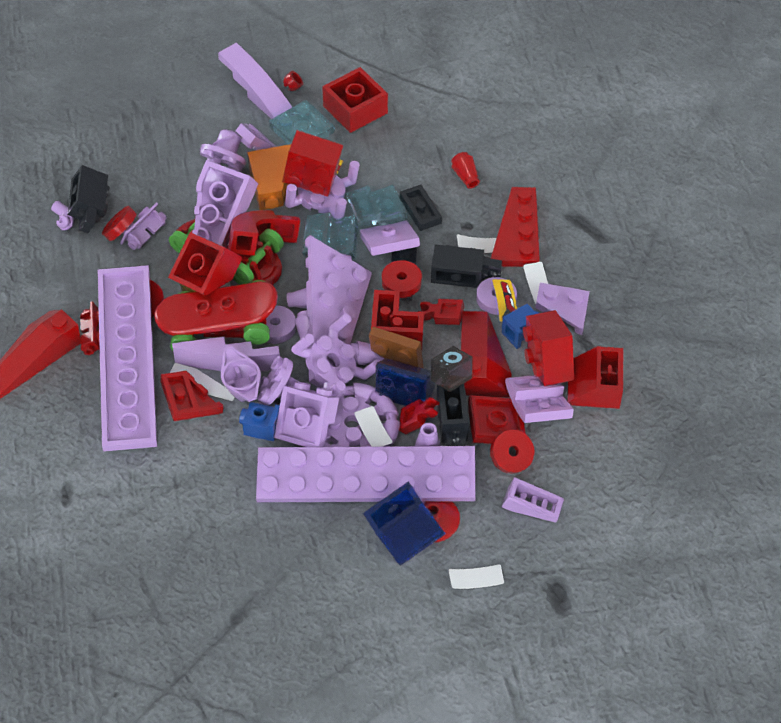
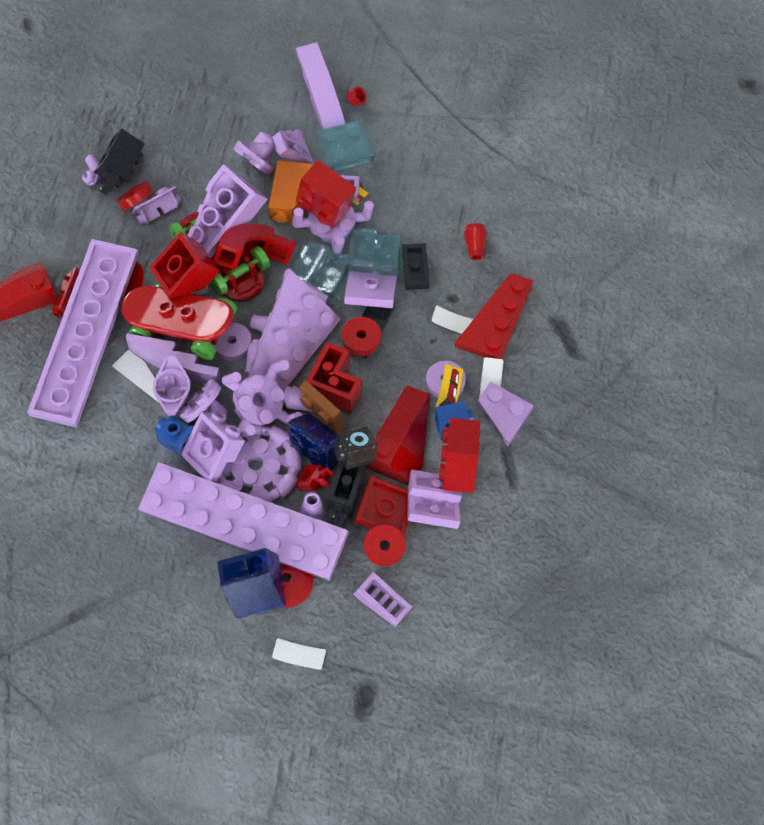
camera: 20 degrees right, 10 degrees up
(187, 397) = (122, 389): red wing -> none
(355, 99) = (402, 135): red brick -> none
(372, 427) = (268, 477): white sticker -> none
(444, 312) = (388, 382): red plate -> none
(462, 266) = (425, 340): black hinge -> none
(597, 378) = (496, 498): red slope -> none

